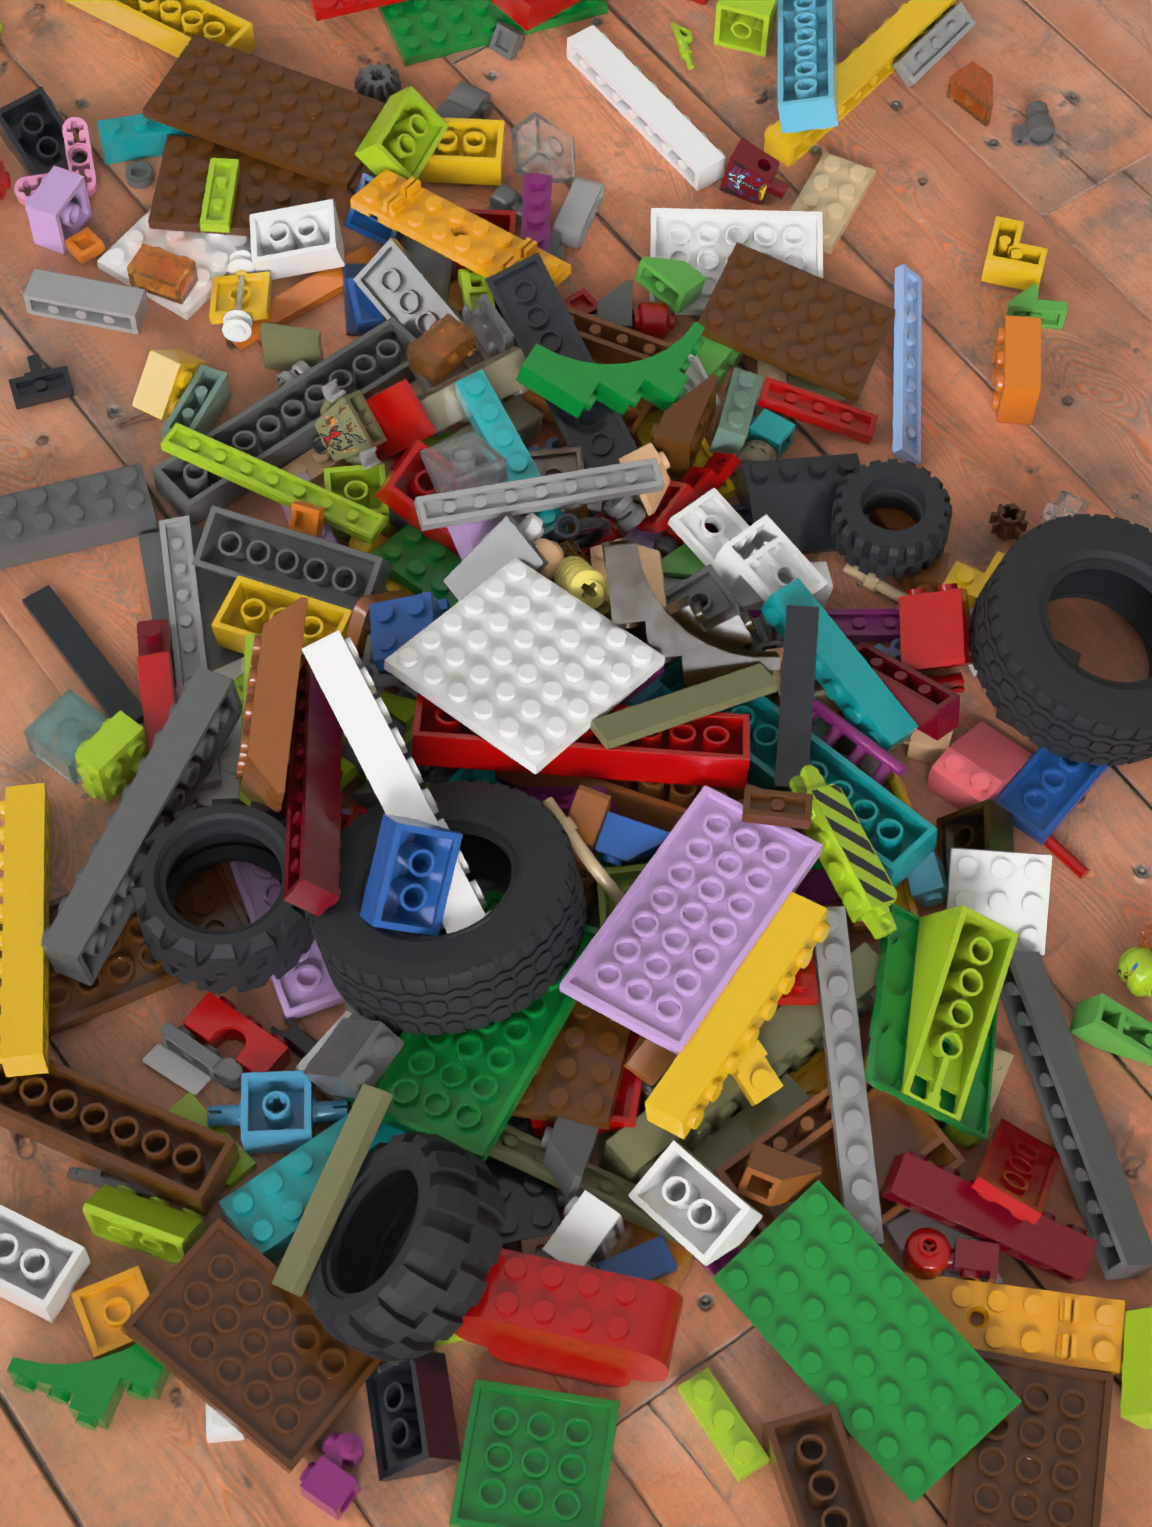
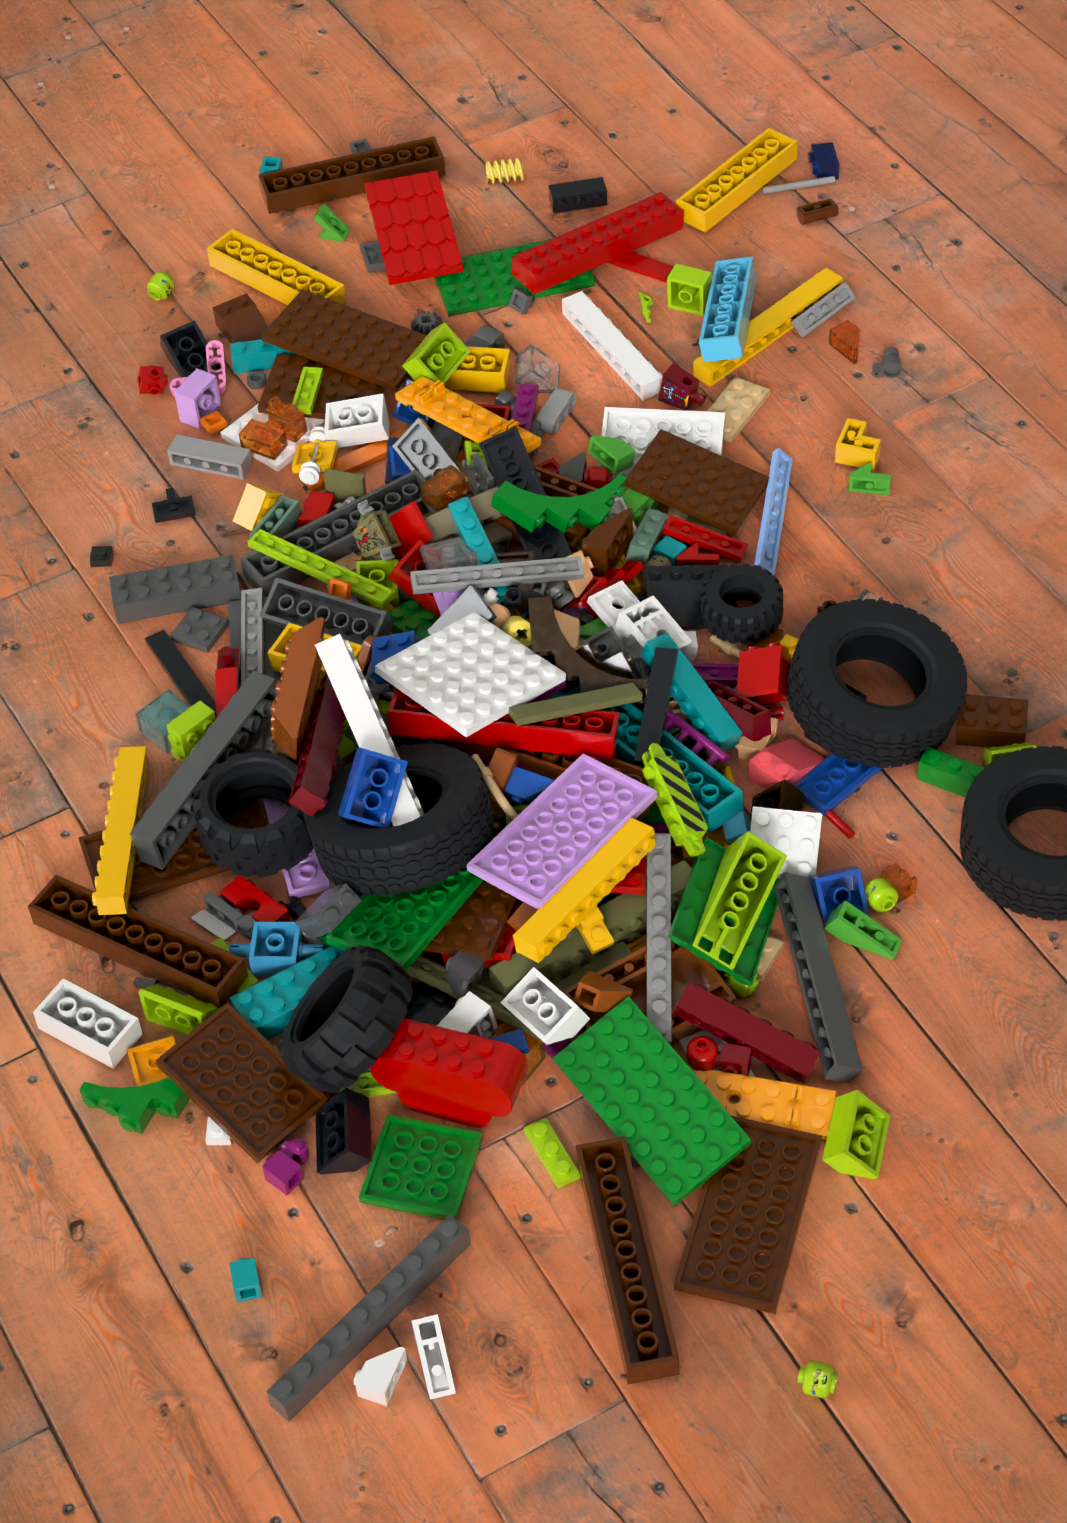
camera: 10 degrees right, 10 degrees down
(102, 581) = (200, 629): none -> dark grey plate
(107, 83) = (239, 319): none -> reddish brown slope
(193, 240) = (286, 418): none -> clear orange hips
(253, 381) = (316, 506): none -> red brick
(332, 1190) = (303, 985): olive tile -> none
(777, 808) = (628, 766): reddish brown plate -> none
(803, 444) = (692, 557): none -> red slope
(1017, 370) = (849, 516): orange brick -> none
(1017, 1172) = (769, 1004): red plate -> none
(1083, 968) = (835, 887): none -> blue slope

